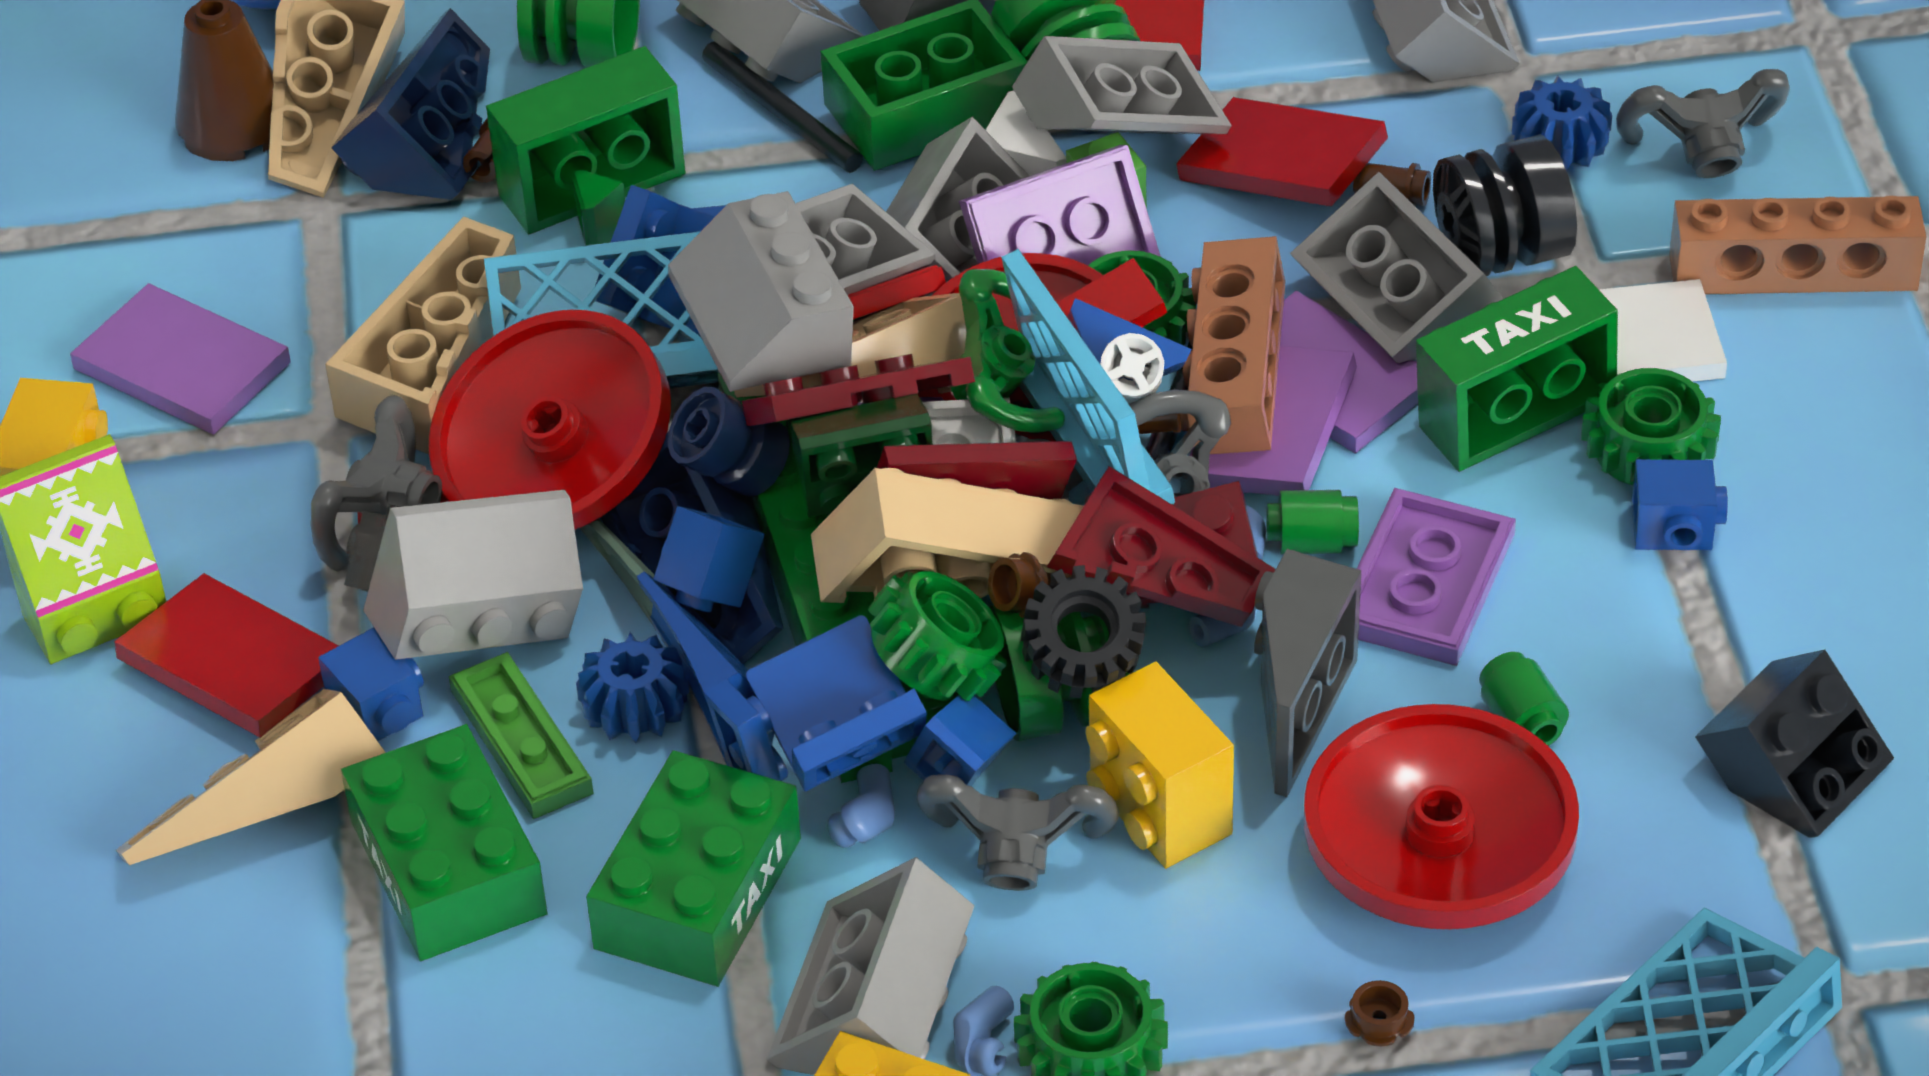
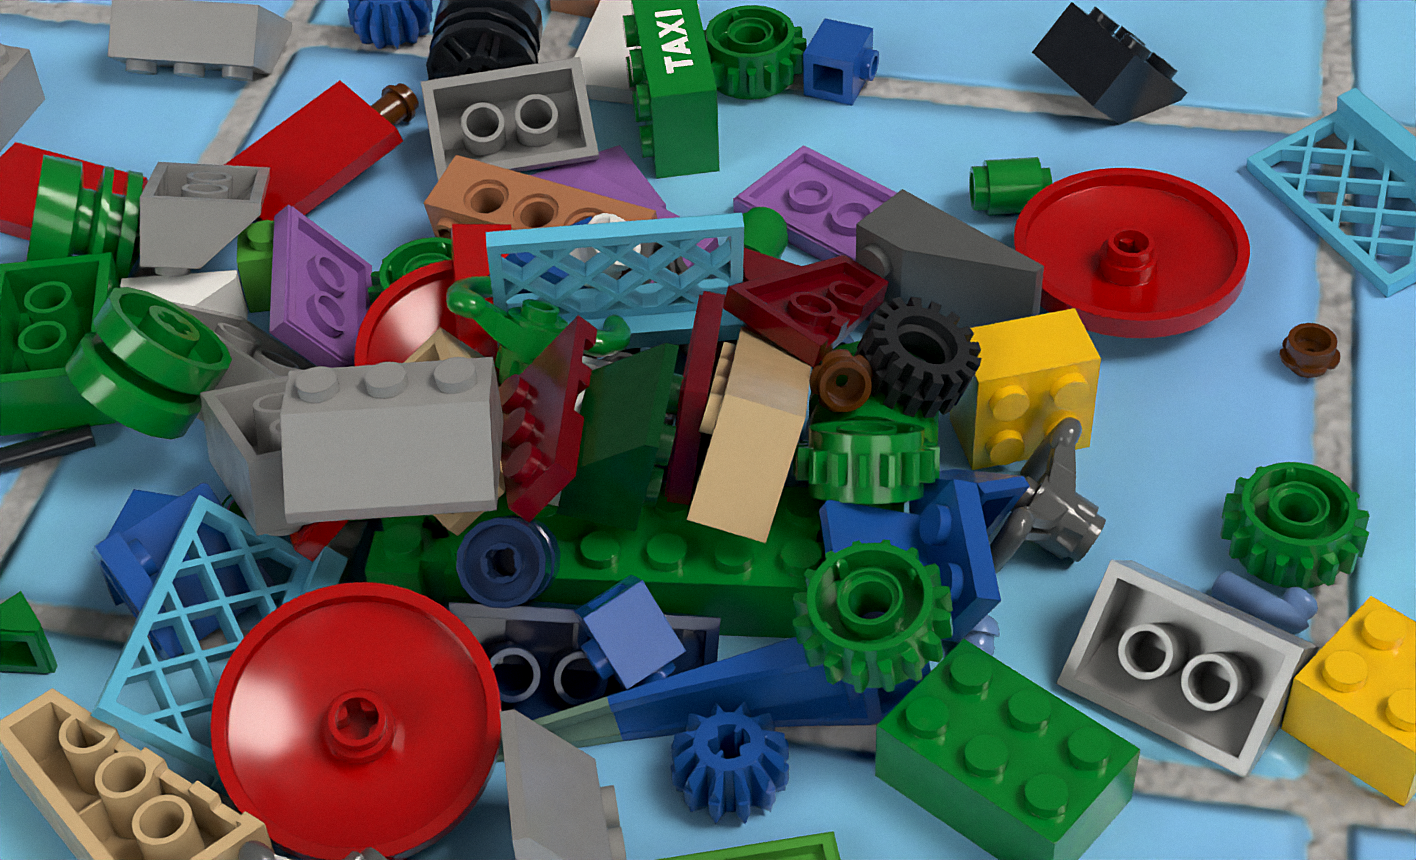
camera: 70 degrees left, 0 degrees up
(722, 672) = (878, 649): none -> green gear
(873, 132) = (147, 363): none -> green wheel

